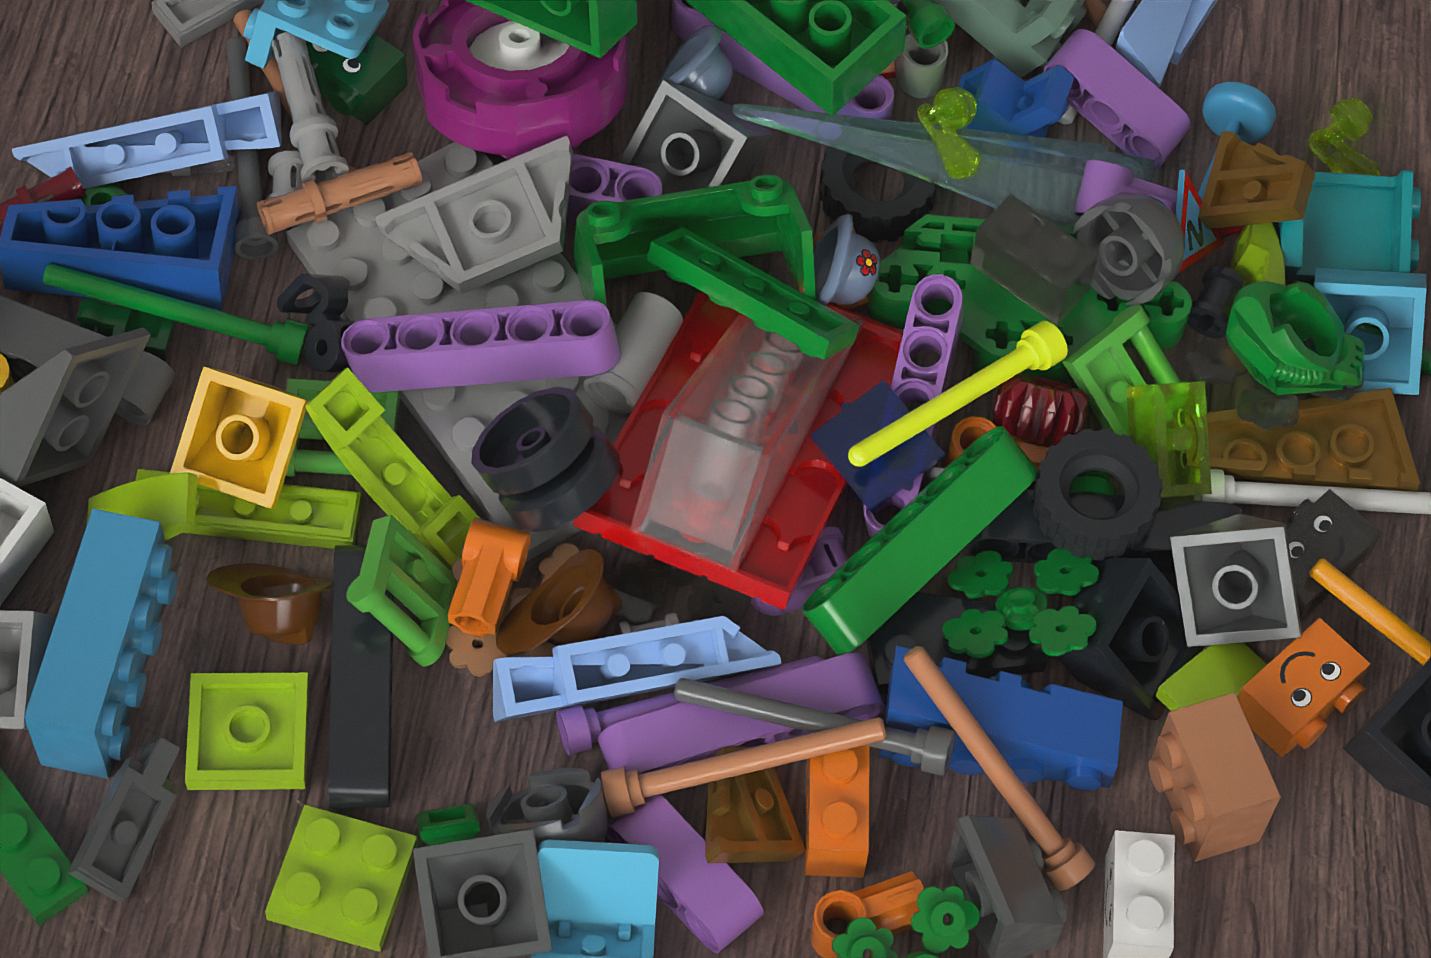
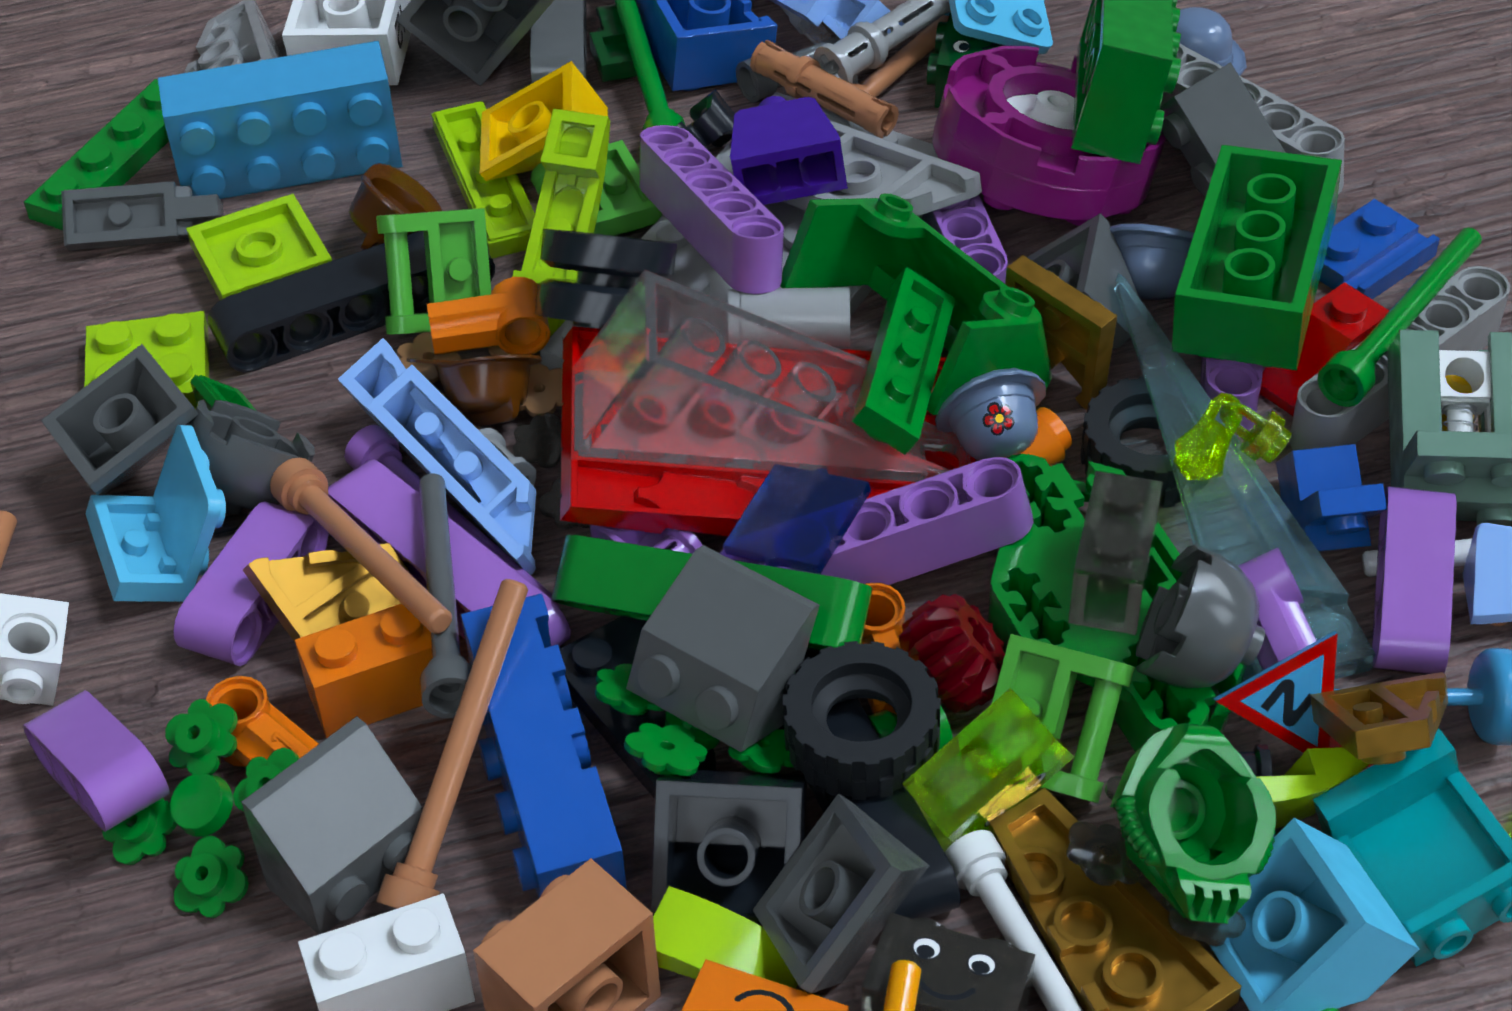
camera: 70 degrees right, 15 degrees down
(158, 498) = (433, 109): lime slope -> none
(445, 255) = (786, 150): none -> dark purple torso
(778, 155) = (1075, 326): none -> pearl gold wing
(1006, 549) = (723, 649): none -> dark grey slope
(1038, 349) = (1005, 599): neon yellow piece -> none

